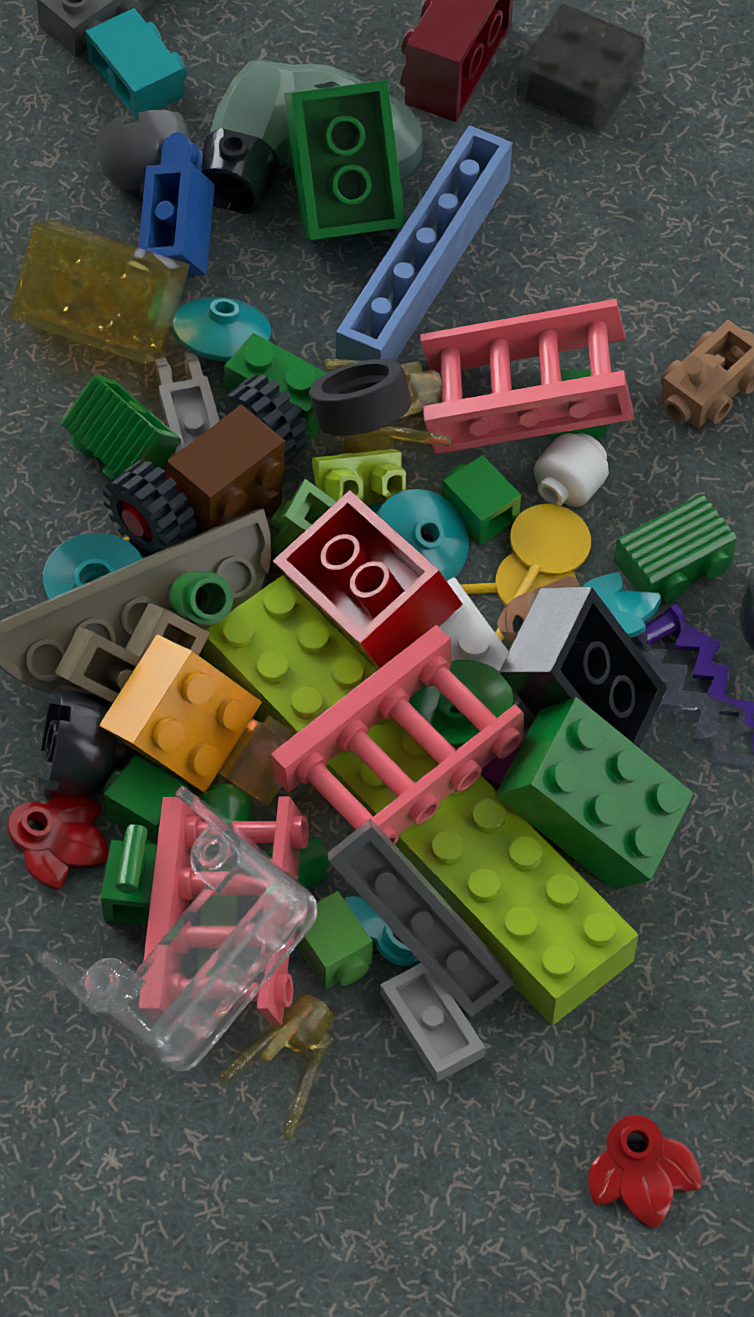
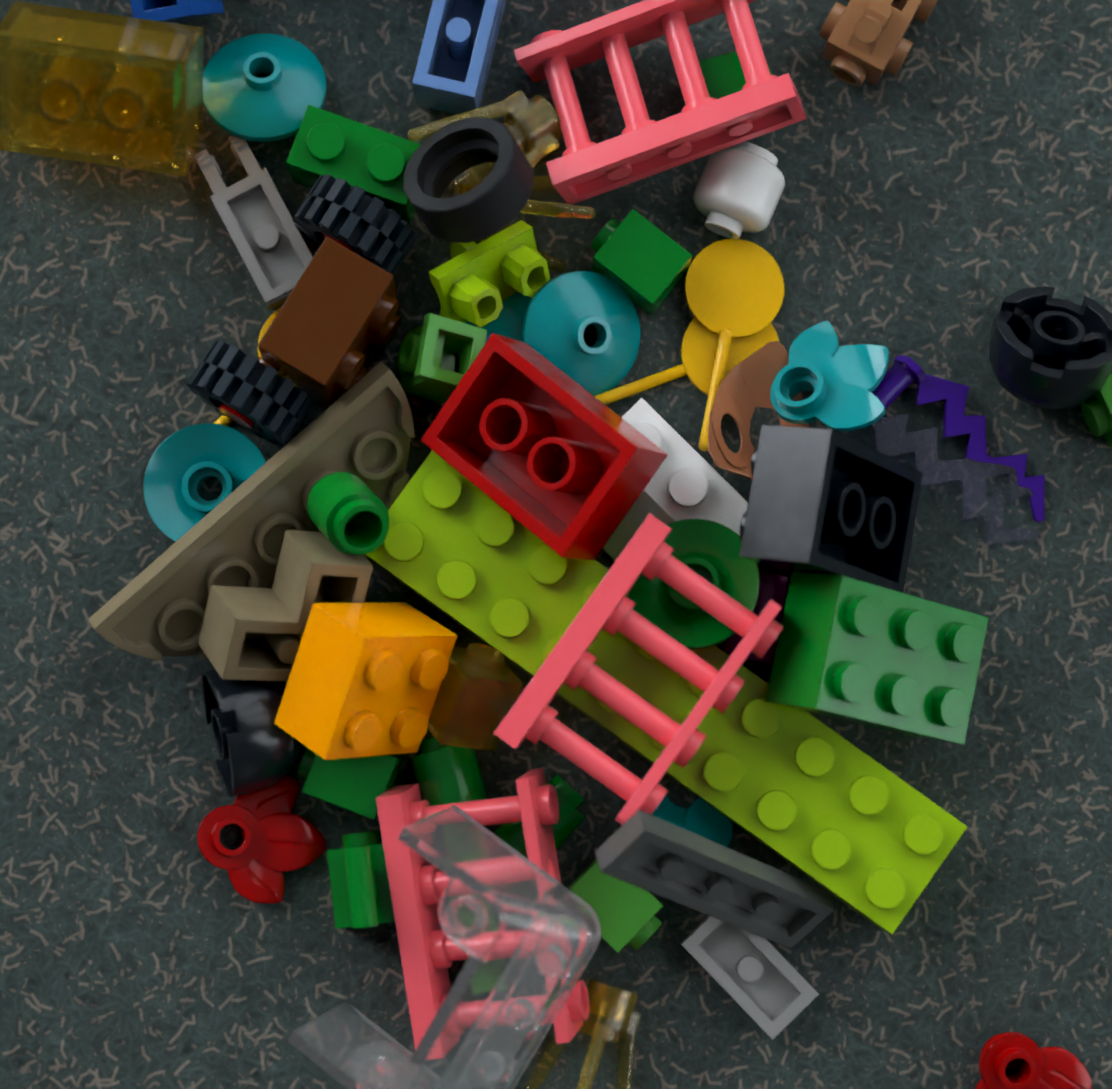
camera: 10 degrees left, 25 degrees up
(117, 428) = (181, 277): green brick -> none
(676, 549) = (890, 273): green brick -> none

